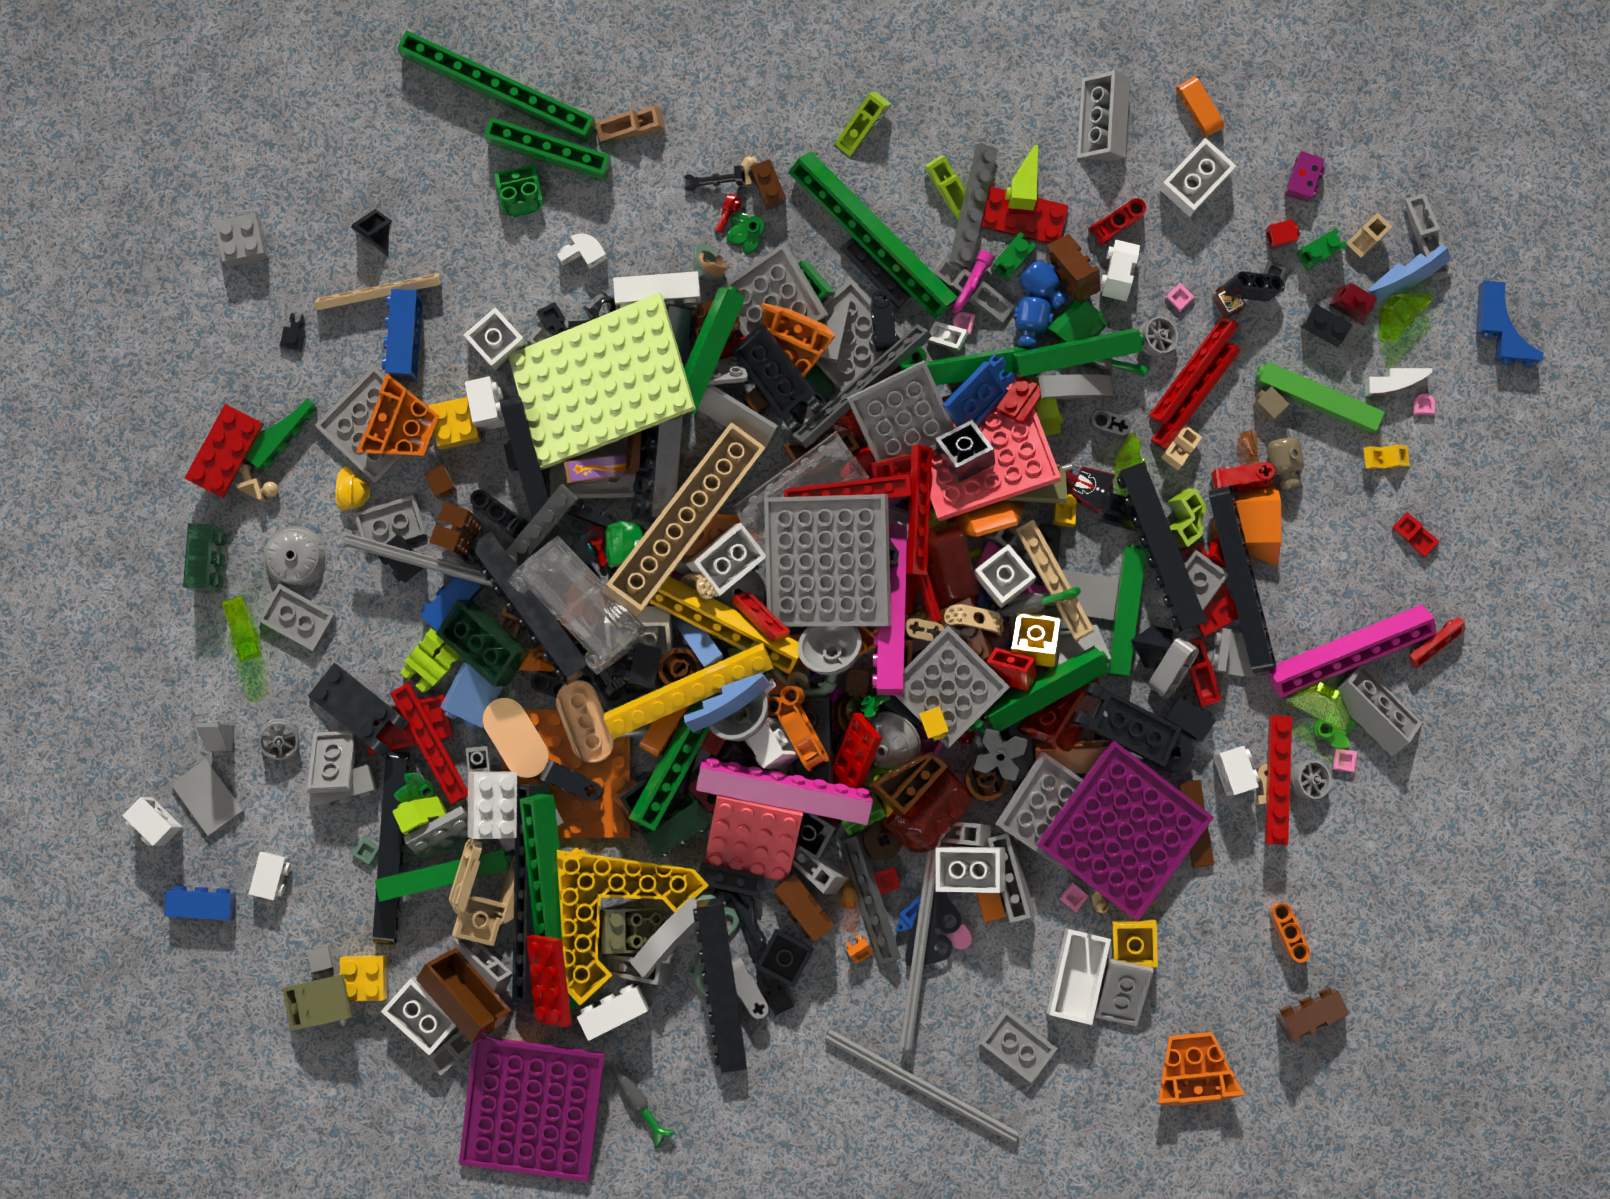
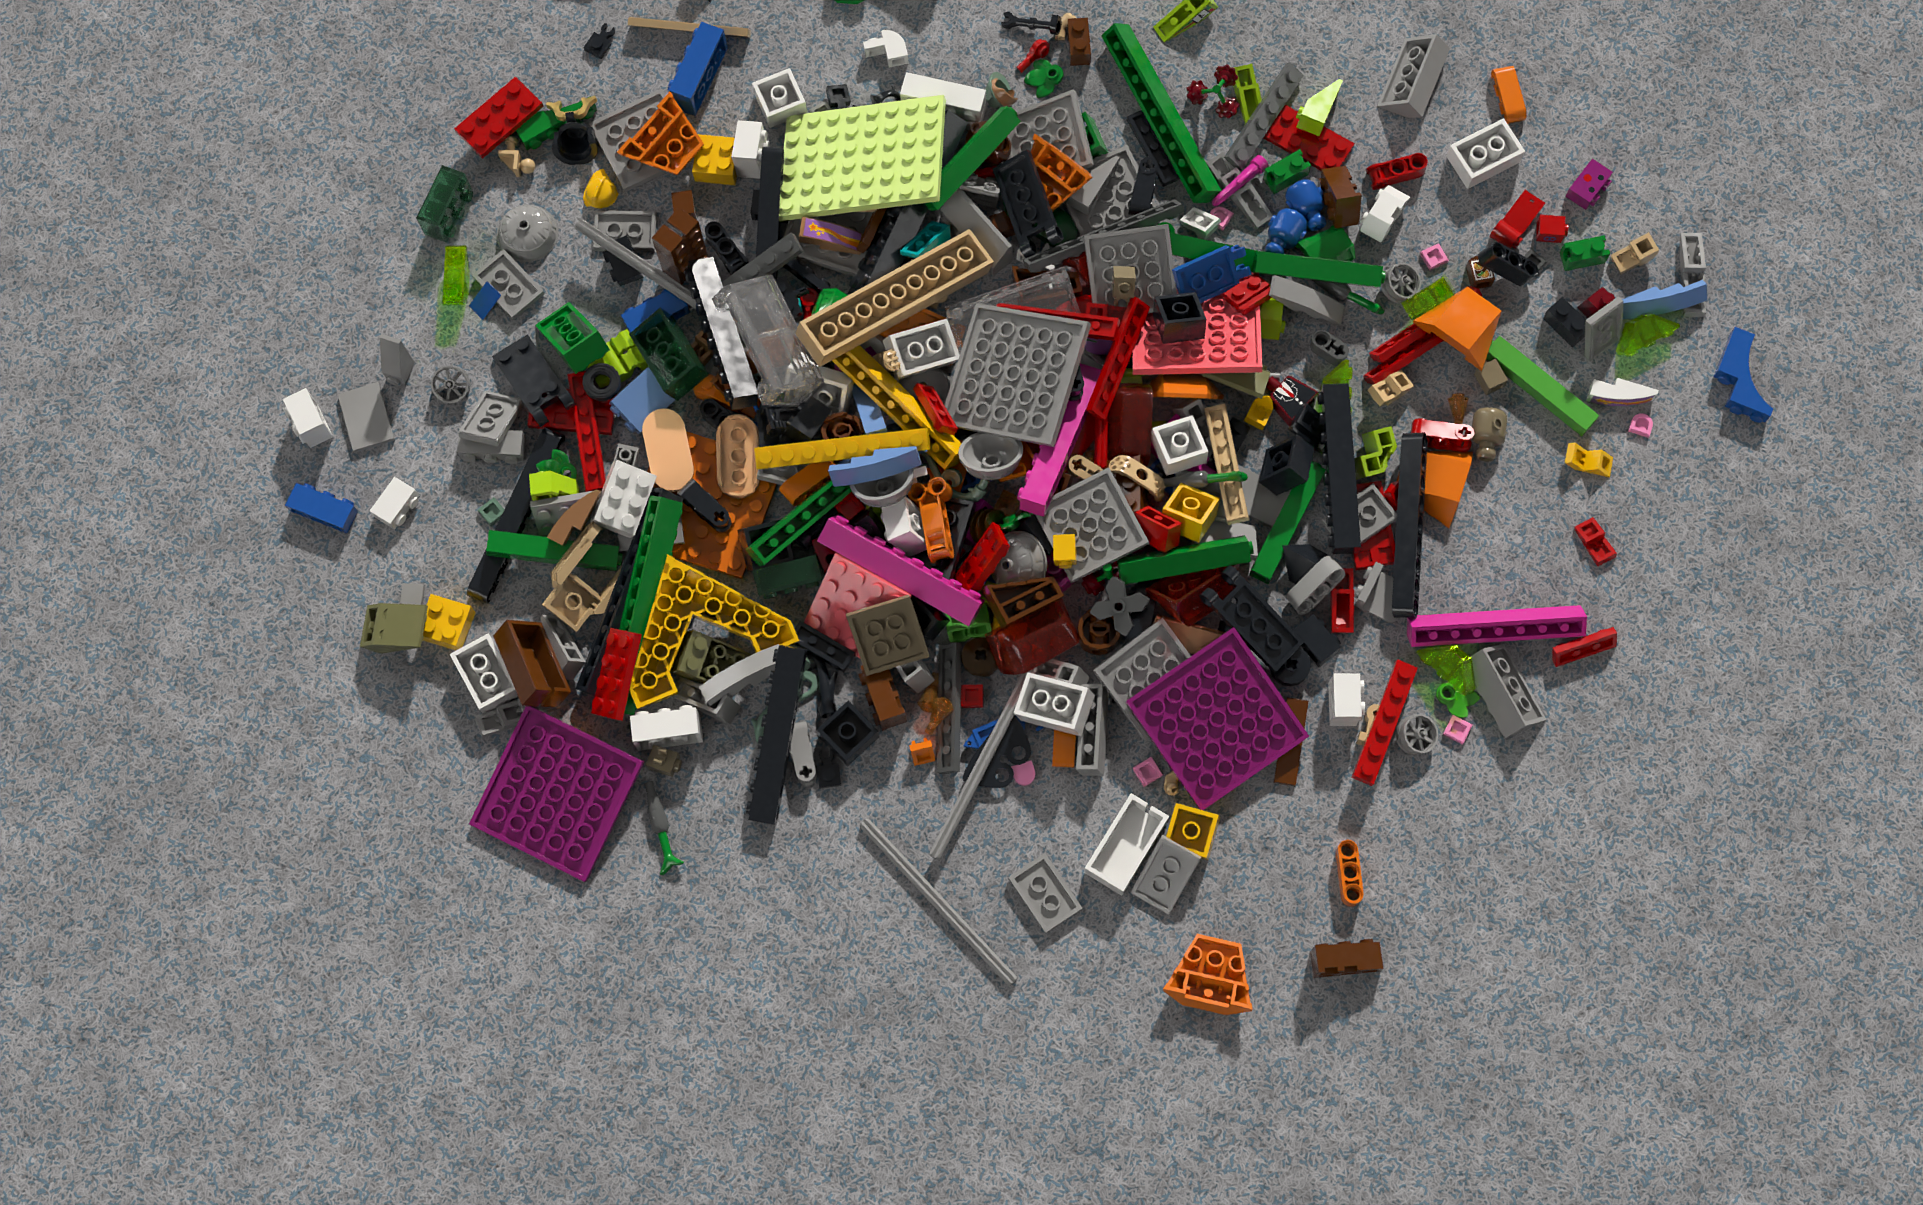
camera: 25 degrees right, 10 degrees down
(279, 641) = (485, 300): none -> blue sticker
(307, 447) = (574, 141): none -> black helmet
(381, 654) = (573, 337): none -> green slope
(417, 682) = (601, 394): none -> black tyre
(453, 842) = (575, 517): none -> medium nougat slope
(621, 1041) = (664, 761): none -> dark tan brick
(694, 446) = (927, 239): none -> teal slope
(793, 857) = (887, 635): none -> dark tan plate
(864, 906) = (940, 710): none -> clear orange cone
(901, 434) = (1123, 283): none -> dark tan brick
(932, 206) = (1225, 77): none -> dark red plant
(1110, 560) = (1286, 465): none -> black brick
(1190, 343) = (1428, 297): none -> clear neon green slope
(1231, 361) = (1464, 323): none -> orange wedge
(1246, 235) = (1517, 220): none -> red door
(1365, 325) = (1603, 329): none -> light grey tile

